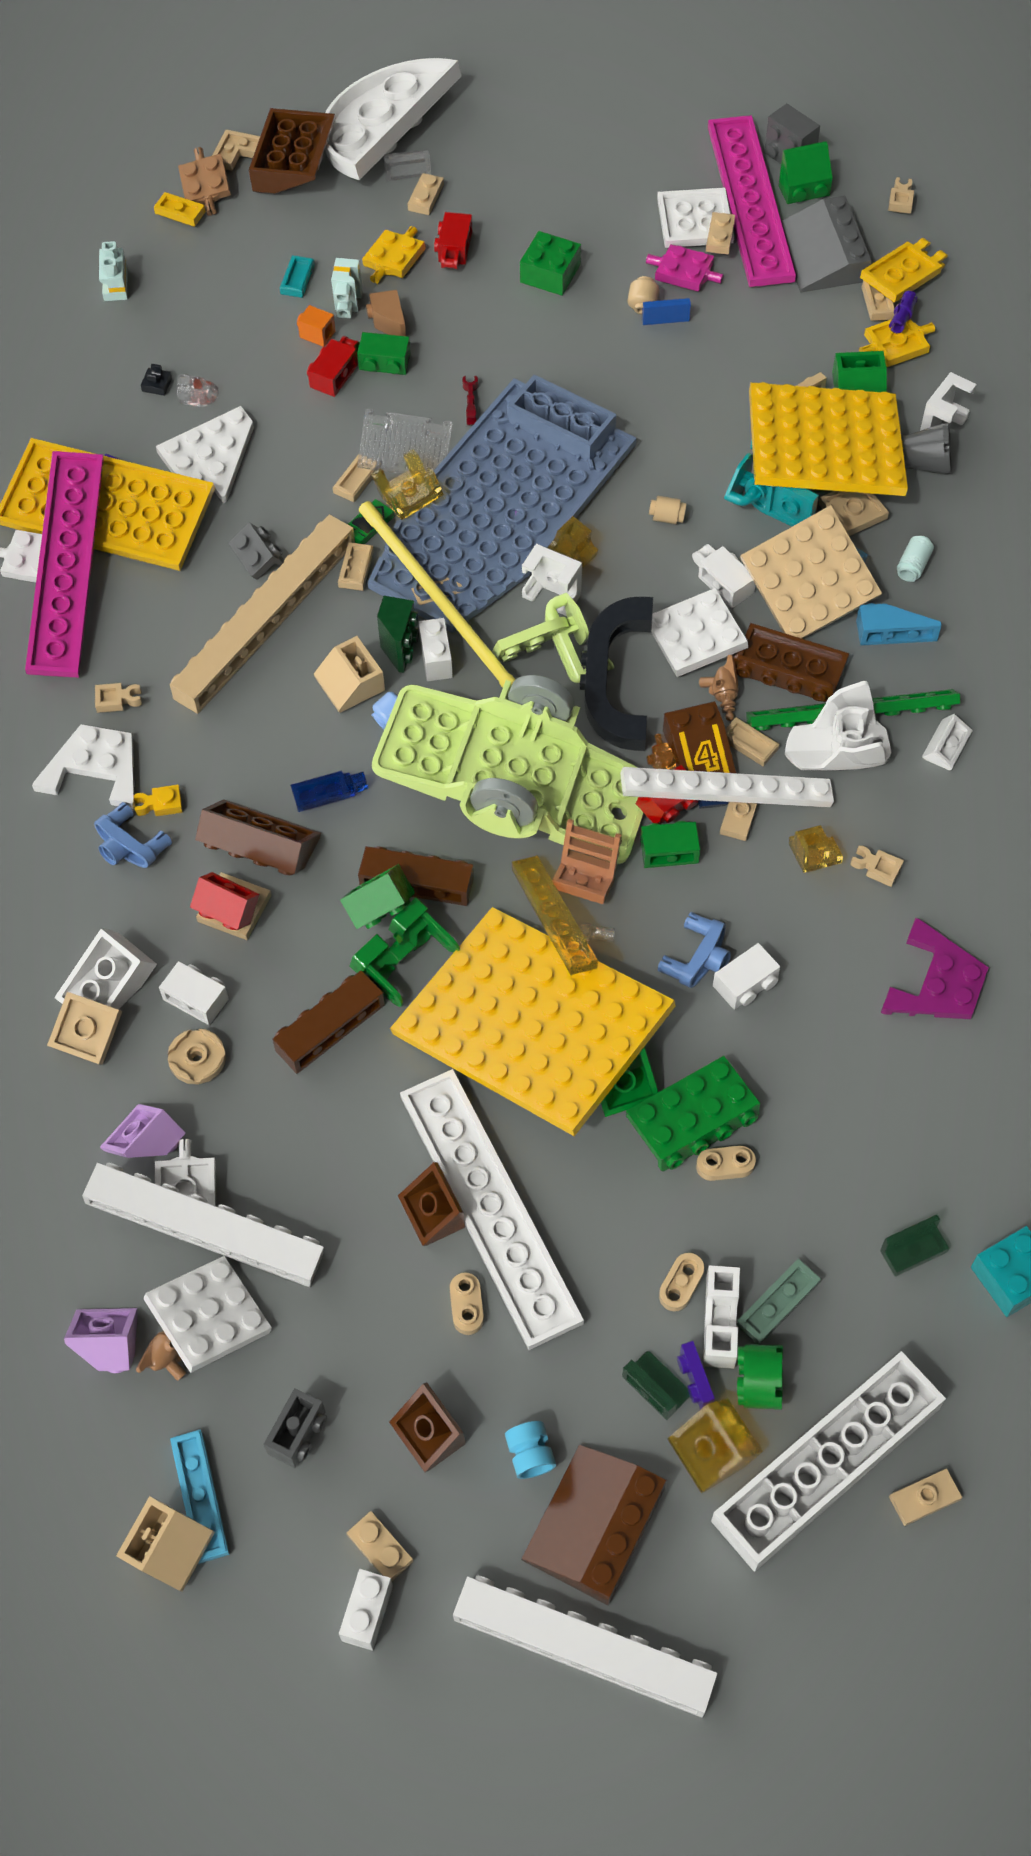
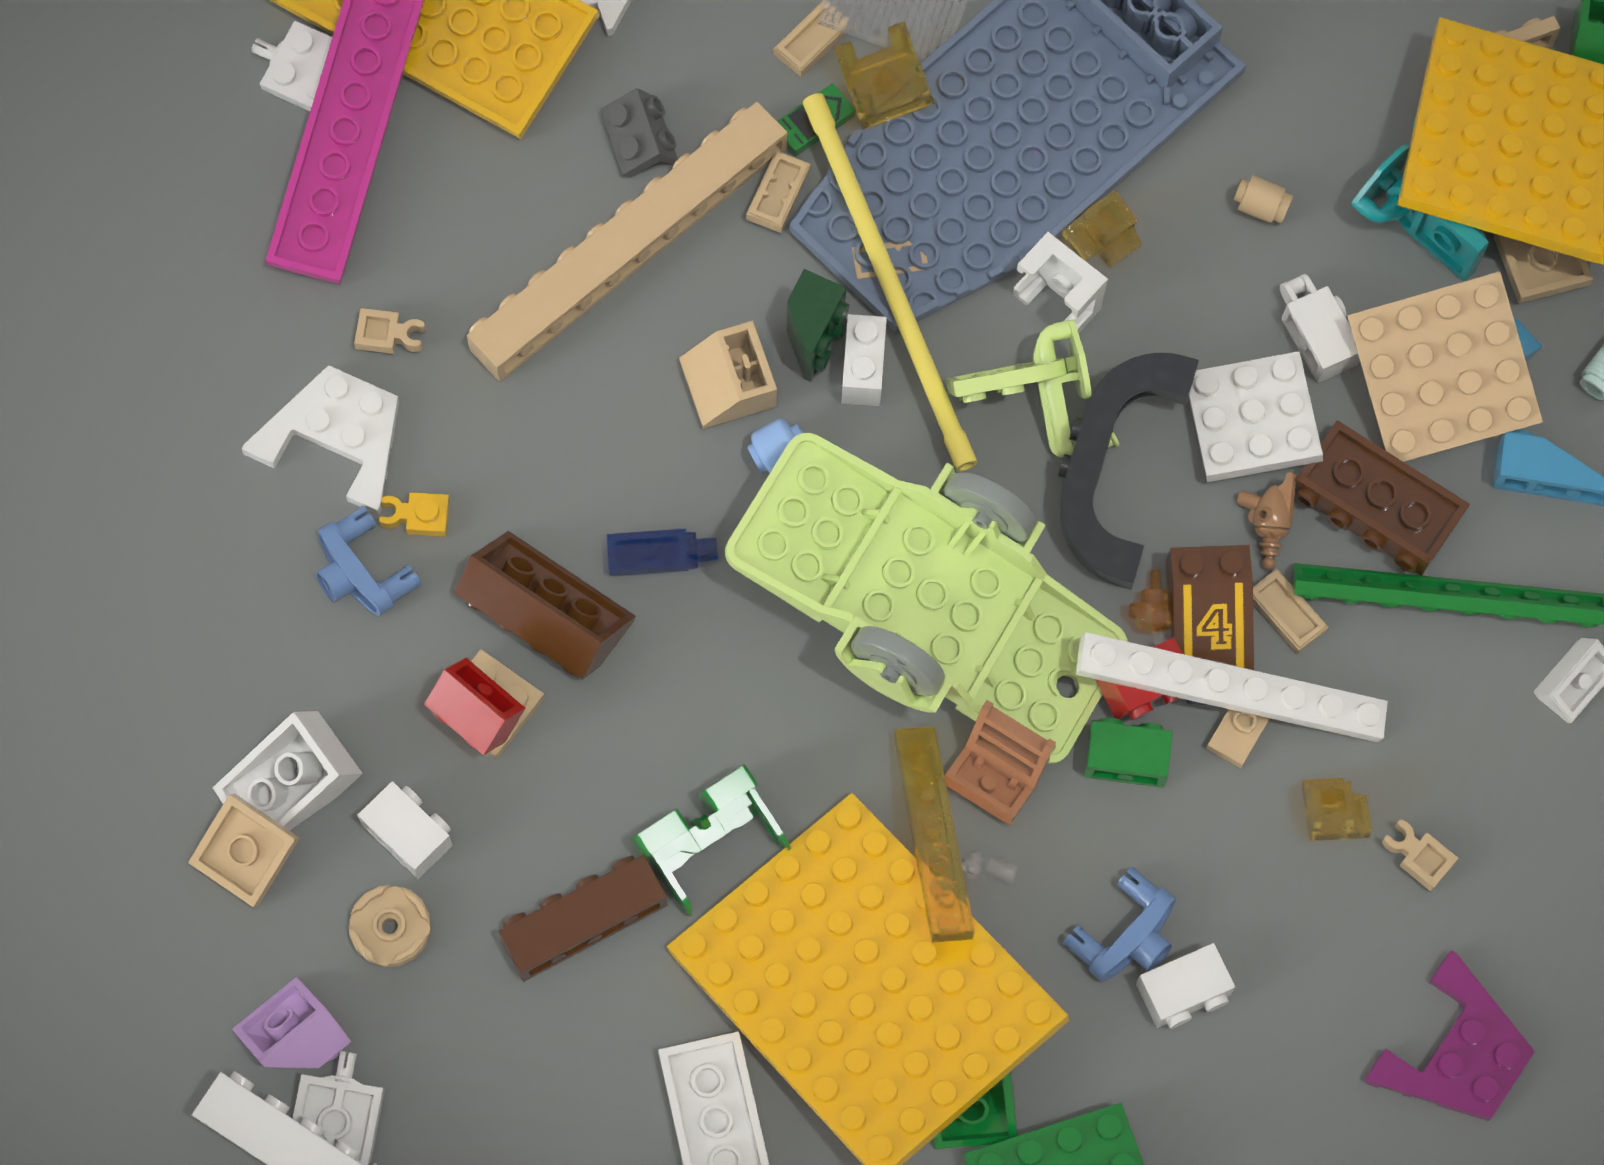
camera: 10 degrees right, 10 degrees up
(378, 896) = (690, 751): brick -> none
(429, 876) = (755, 719): reddish brown brick -> none
(842, 735) = (1392, 642): white piece -> none

